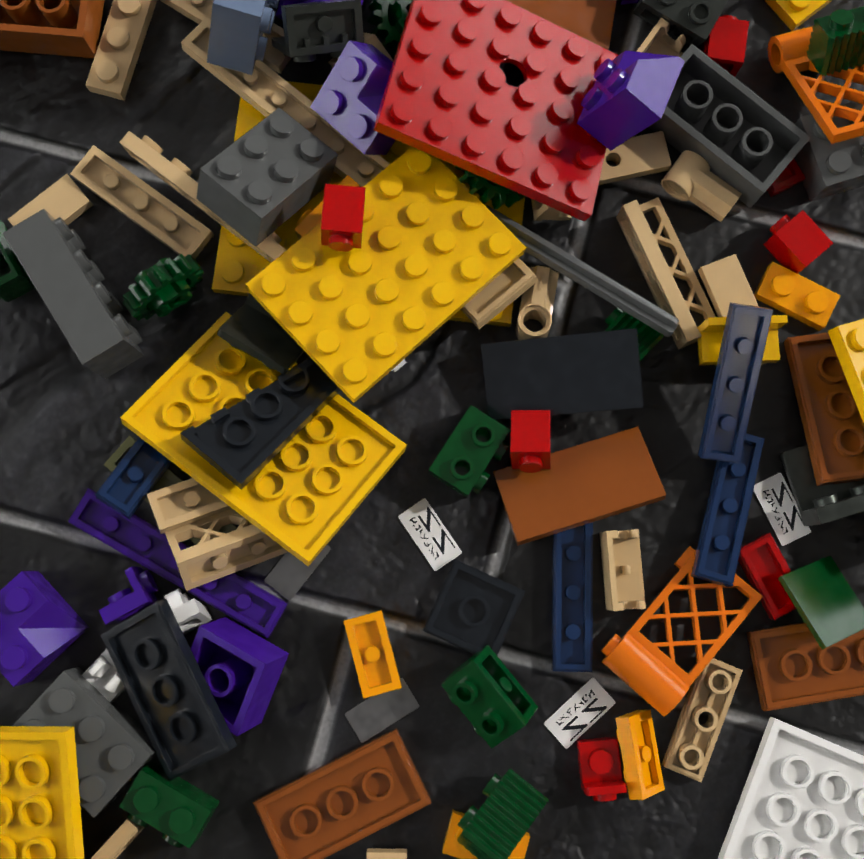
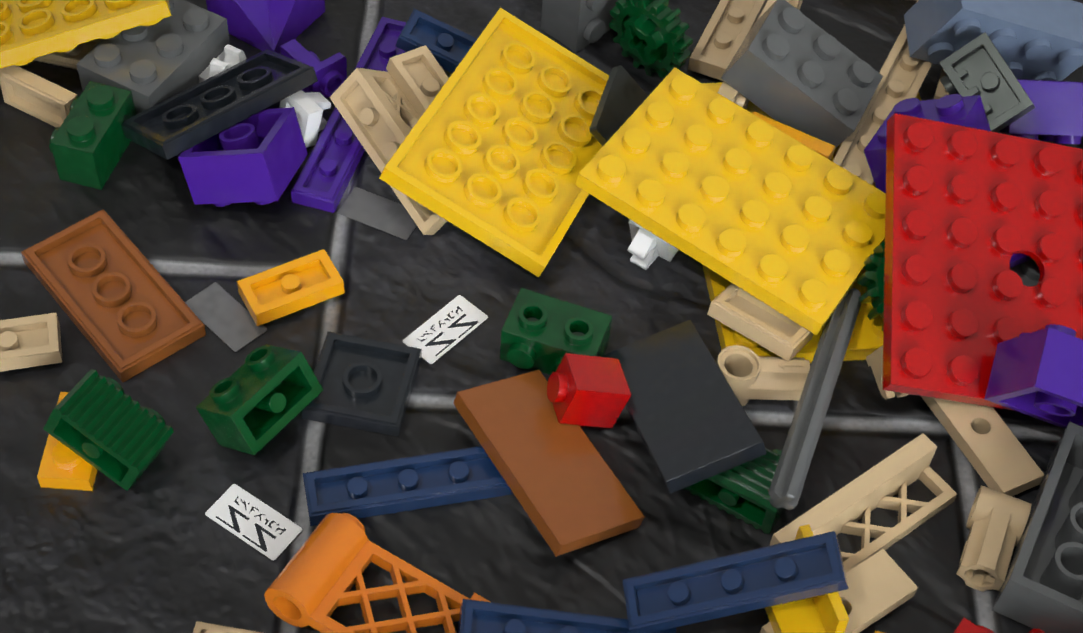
camera: 75 degrees right, 30 degrees down
(257, 428) = (522, 115): black wing -> none
(342, 217) = (779, 123): red brick -> none
(600, 768) = (185, 548): red bracket -> none
(622, 570) = (450, 525): tan hinge -> none
(639, 754) = (209, 584): light orange plate -> none

